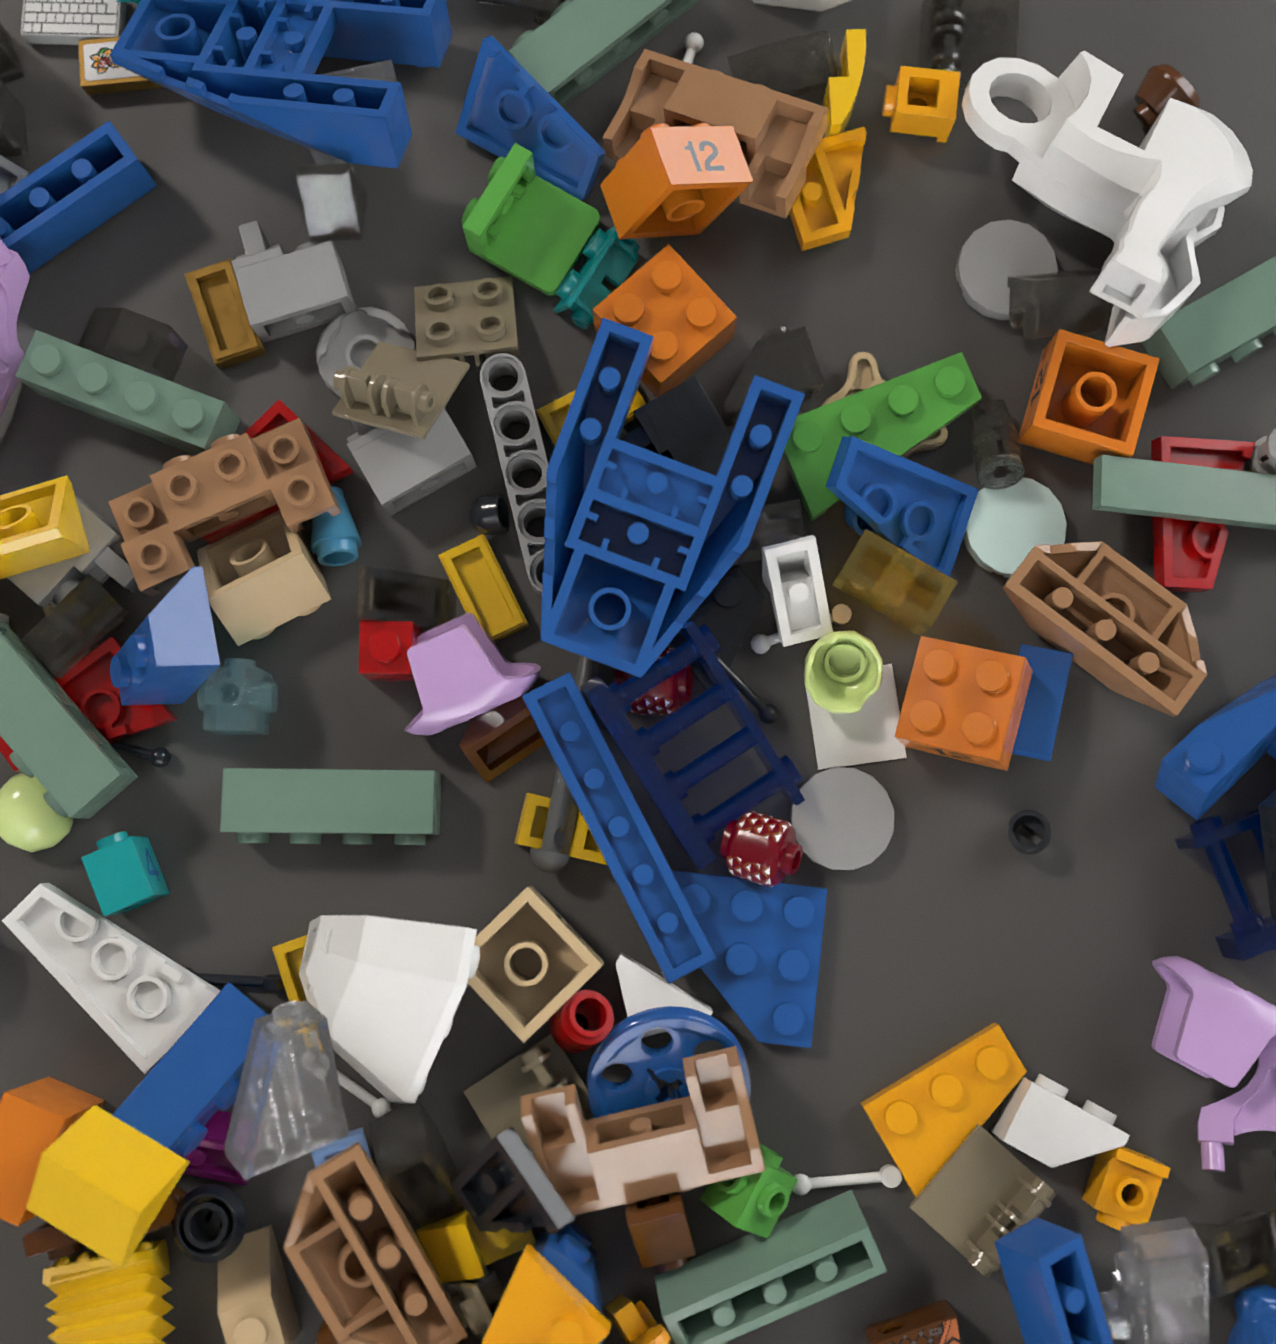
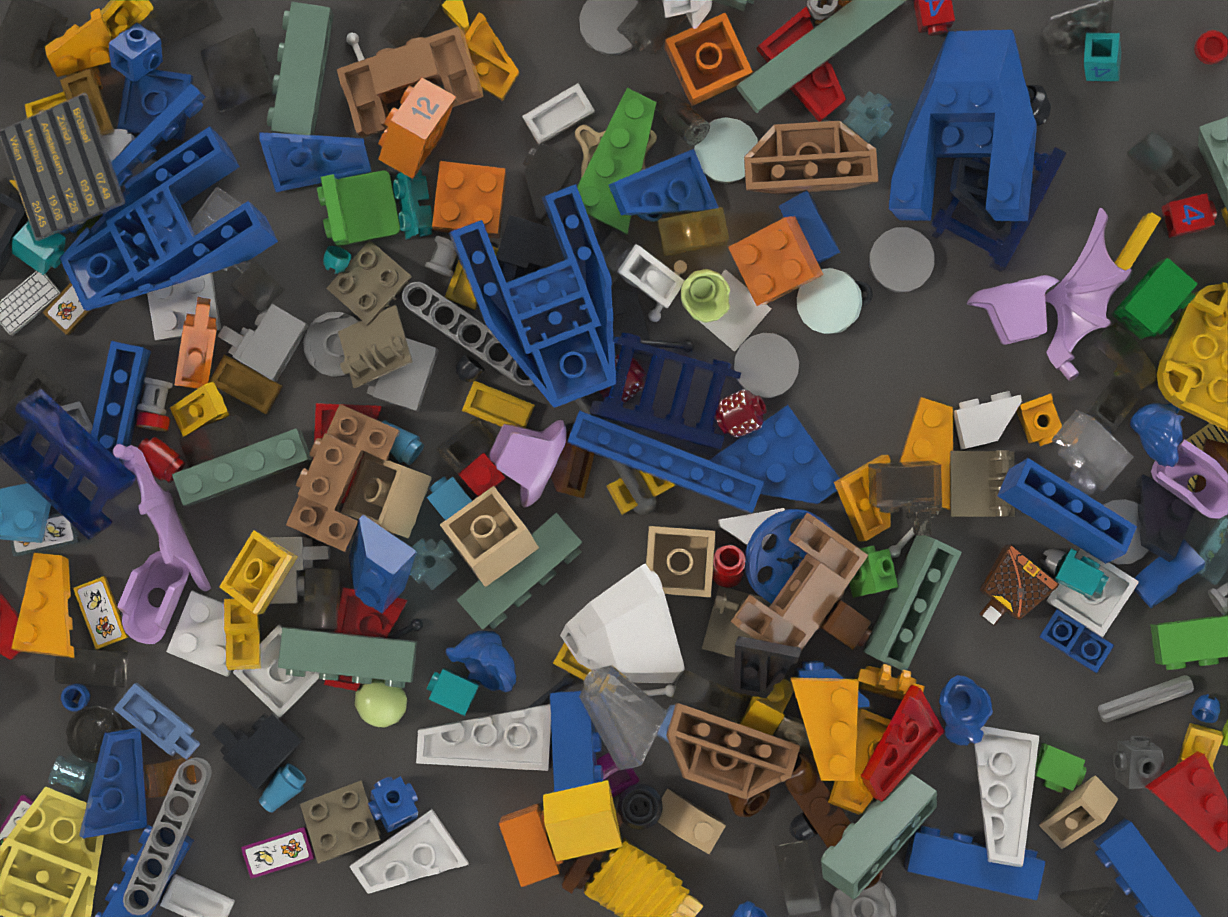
camera: 45 degrees left, 5 degrees up
(49, 305) = (161, 459): none -> red brick
(82, 261) = (153, 421): none -> red tile
(110, 235) = (149, 394): none -> light grey bush
(151, 290) = (199, 409): none -> yellow slope
(197, 870) = (486, 660): none -> blue hair
(205, 217) = (196, 347): none -> orange hinge
(239, 168) = (173, 303): none -> white plate
(324, 727) = (489, 536): none -> tan brick
(328, 649) = (448, 497): none -> dark azure brick
(454, 262) = (336, 258): none -> teal hinge
(570, 363) = (443, 257): none -> light grey bush
(824, 1090) = (854, 495): none -> light orange wing
(854, 320) = (558, 114): none -> white tile
(894, 1127) = (907, 485): none -> clear smoke hinge
(986, 810) = (830, 302): none -> light aqua tile
(1116, 836) = (901, 259): none -> light grey tile
(1229, 631) = (873, 105): none -> clear light blue brick

